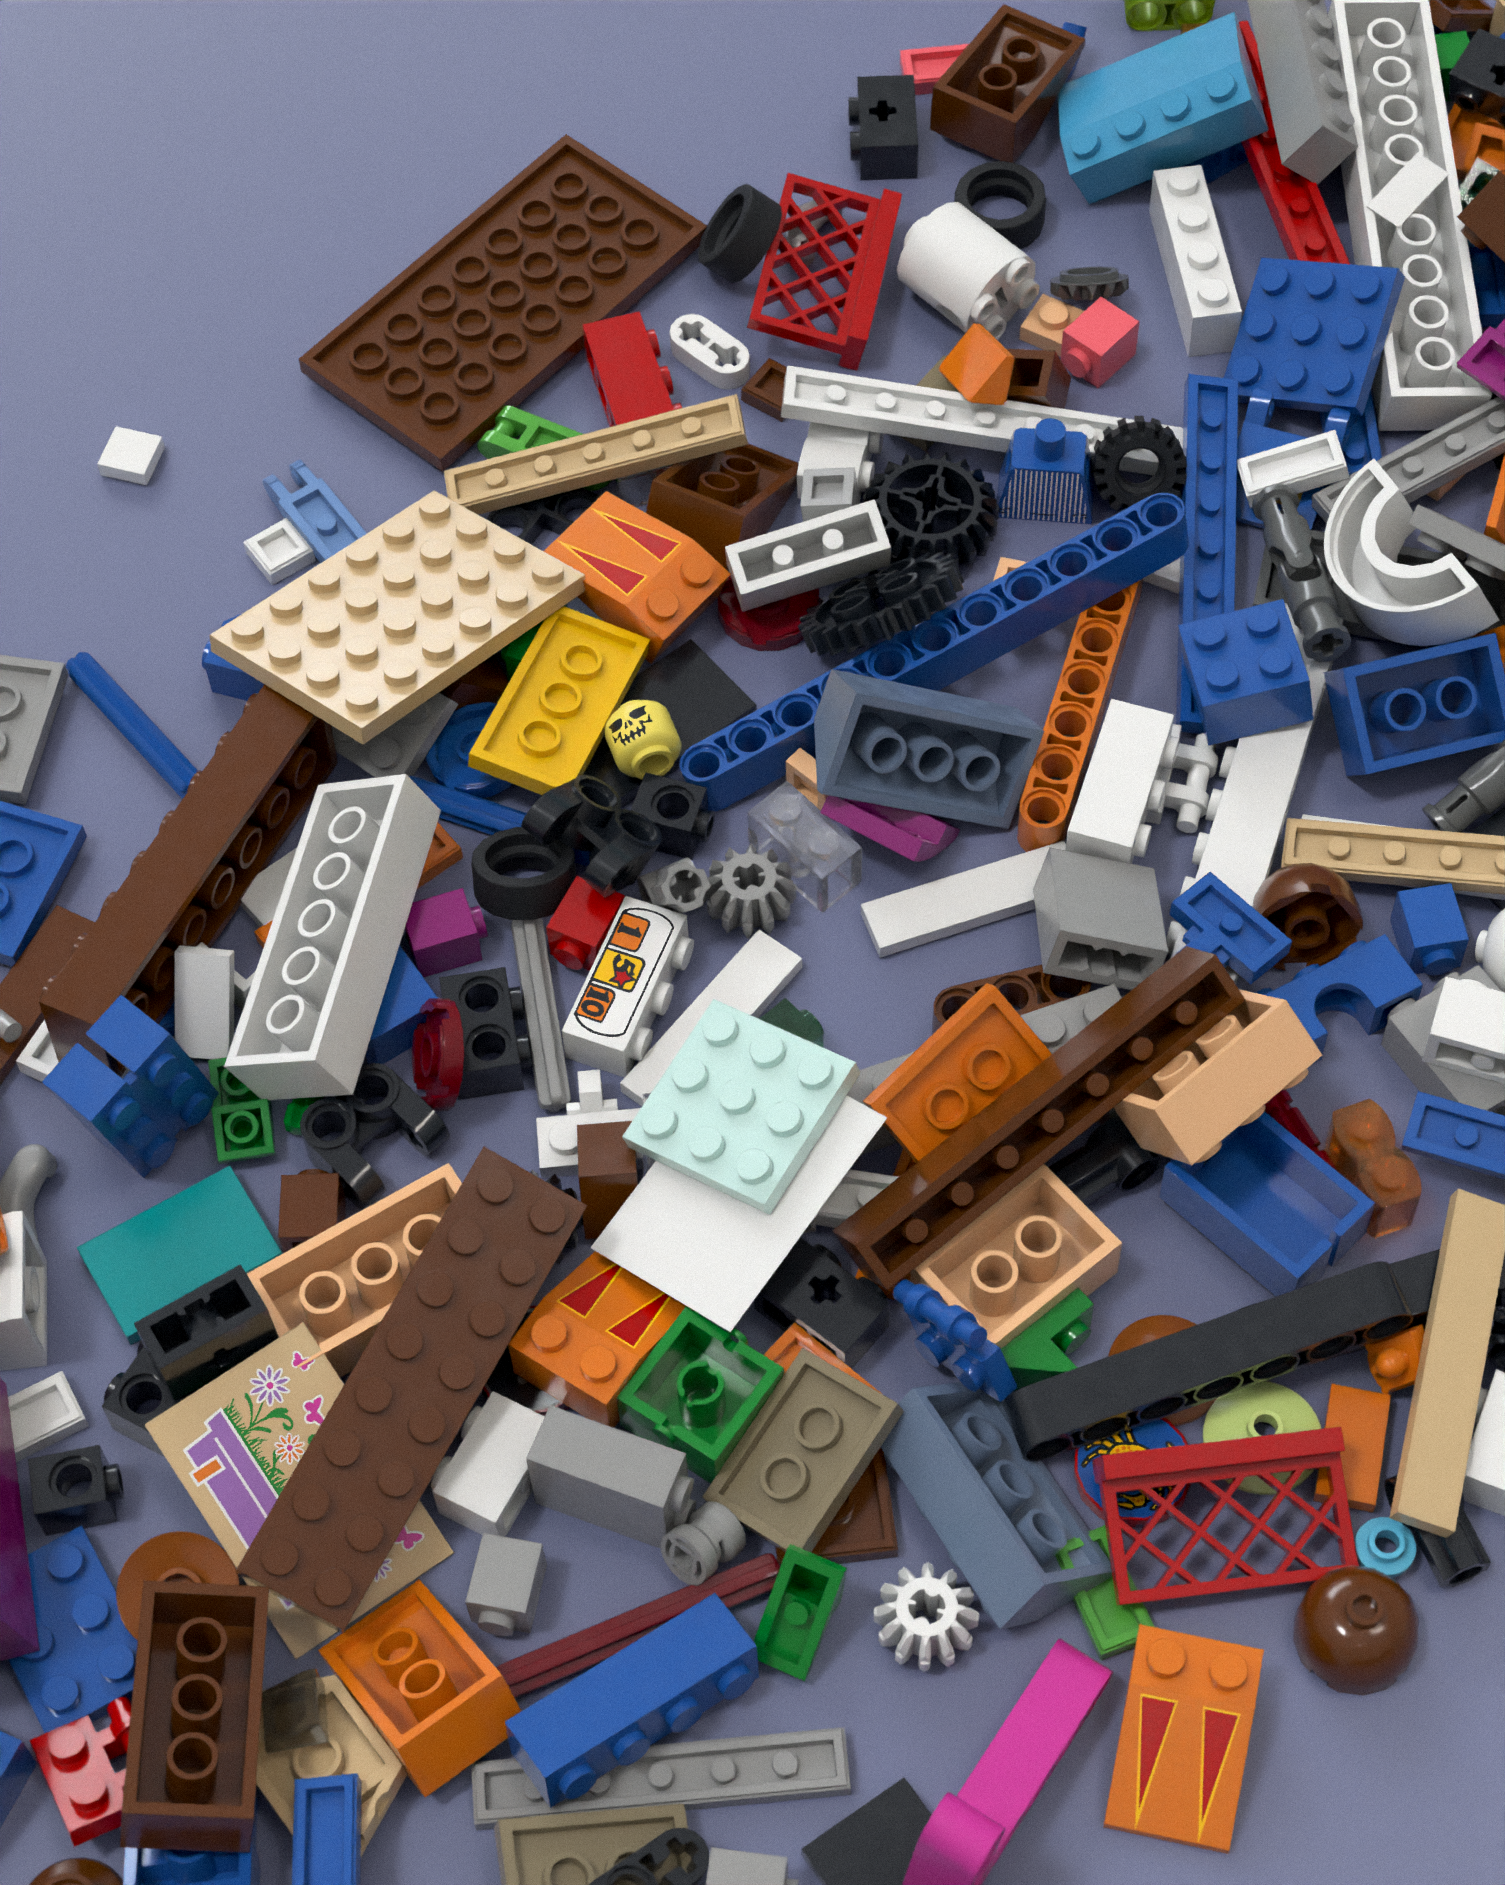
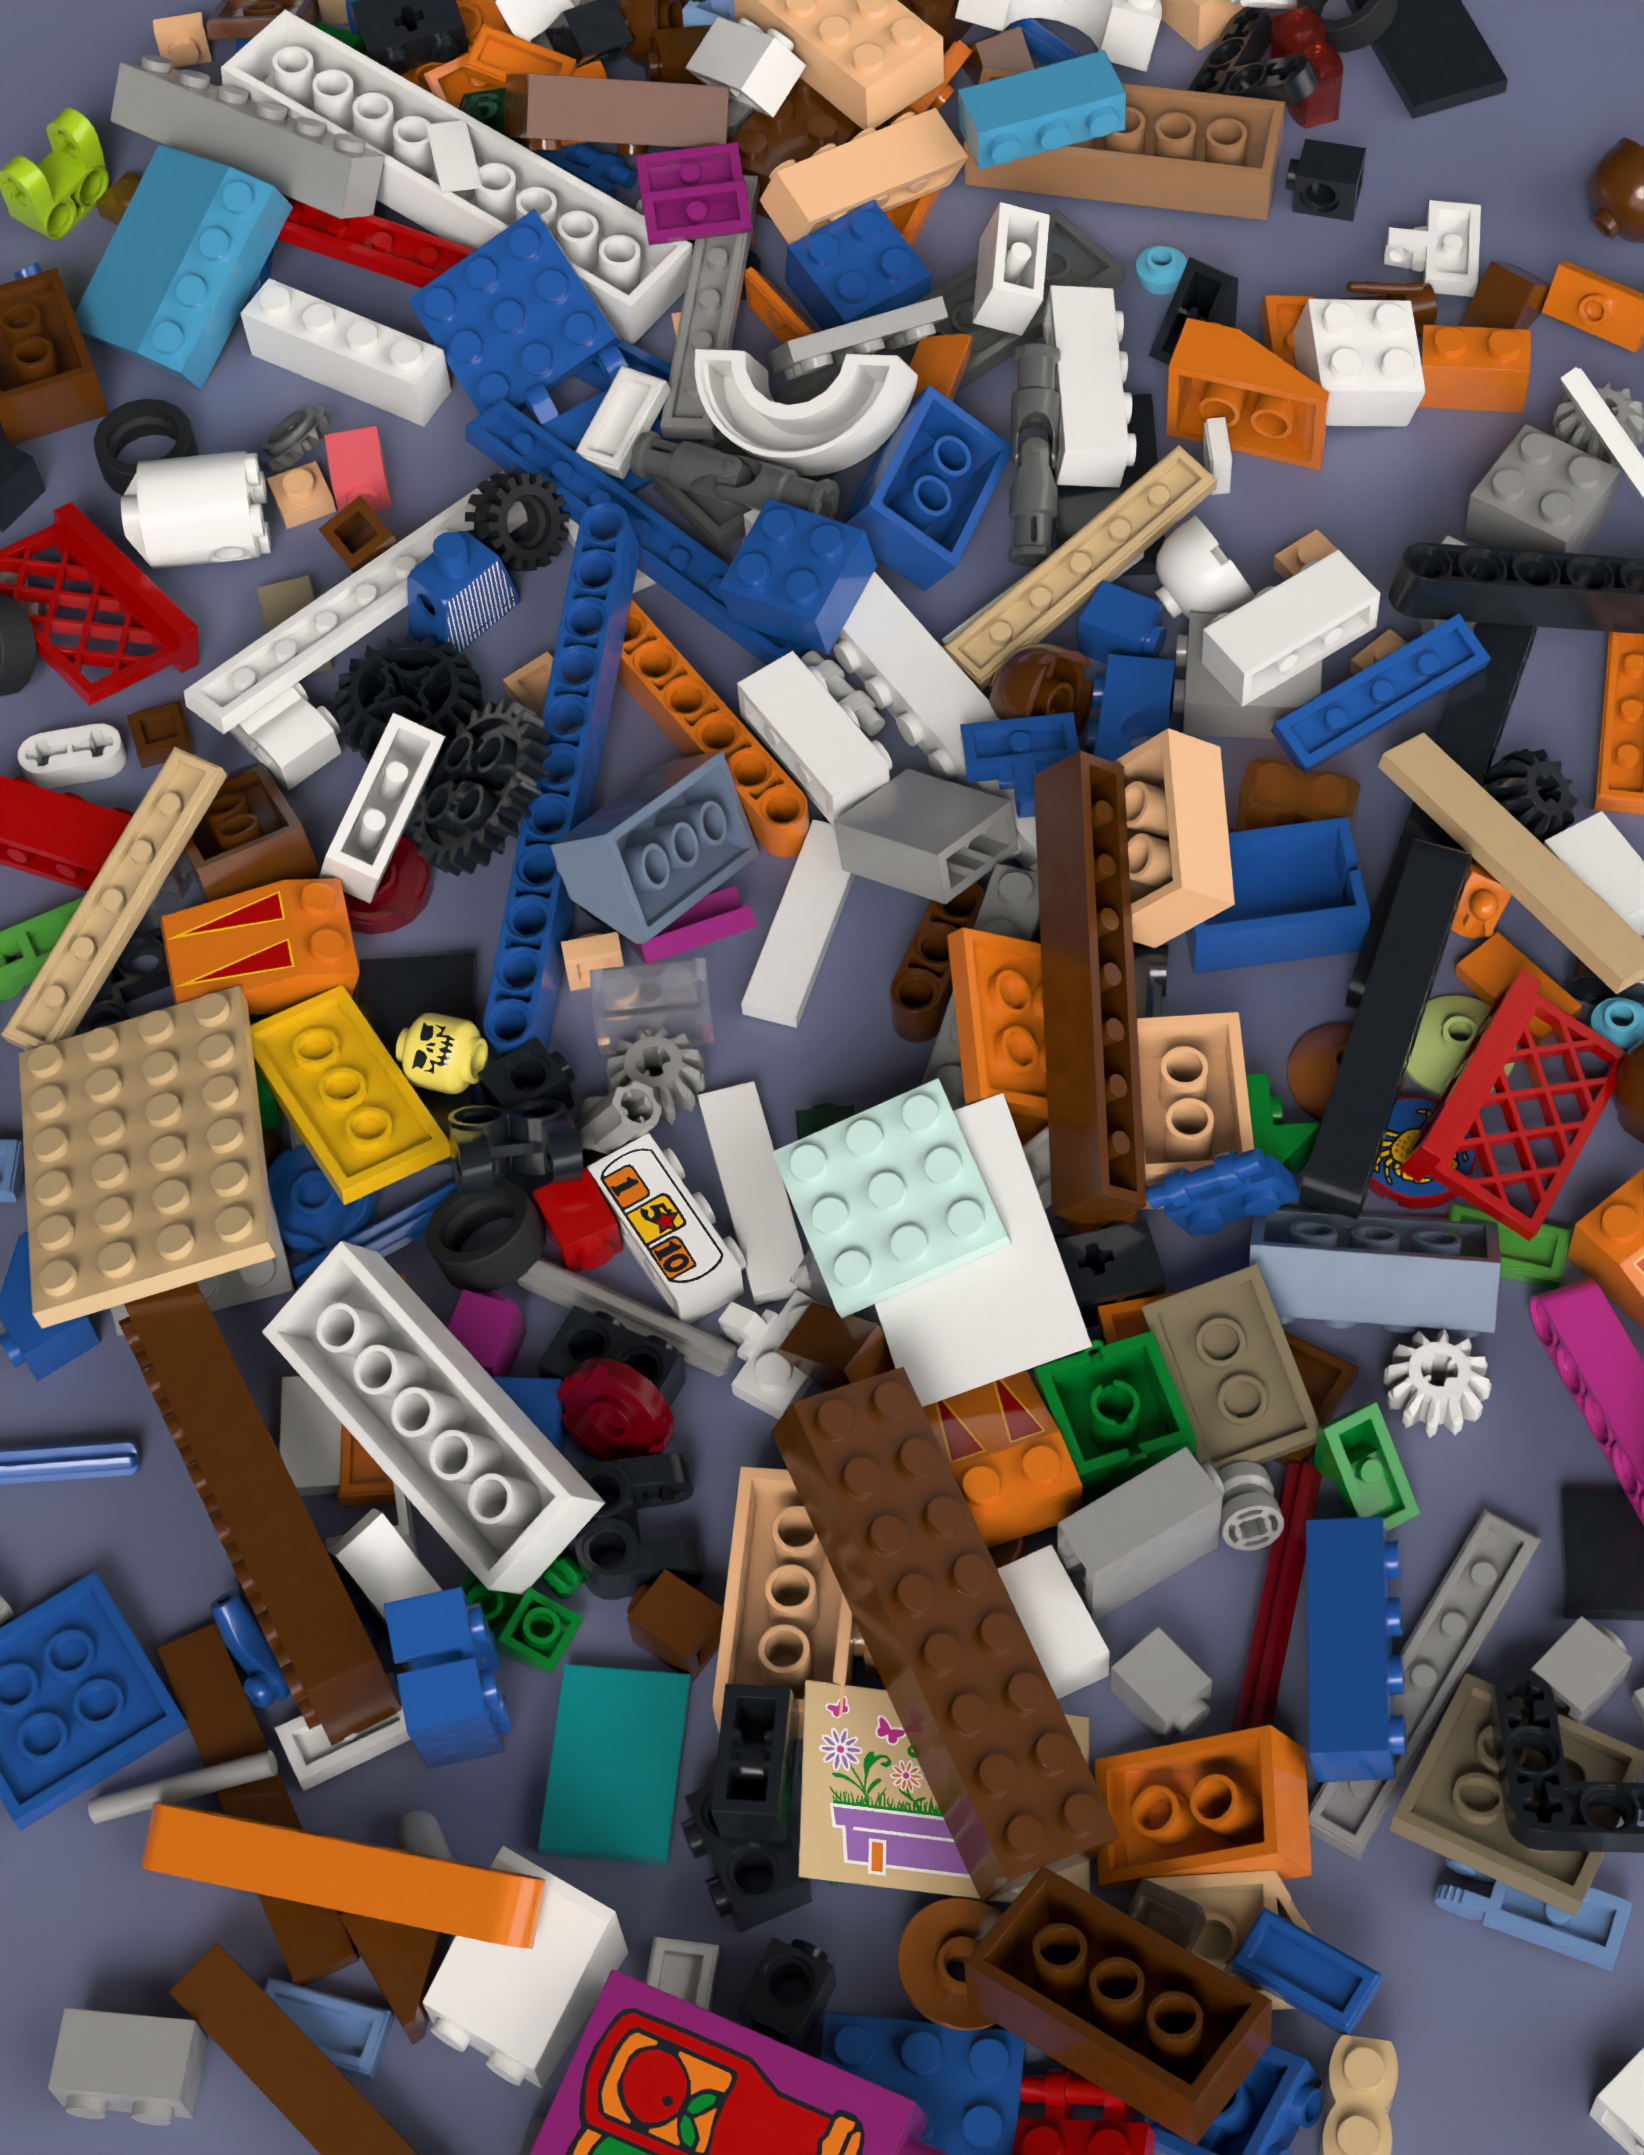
camera: 50 degrees left, 0 degrees up
(828, 491) = (333, 761): light grey brick -> none
(979, 367) = (314, 560): orange slope -> none

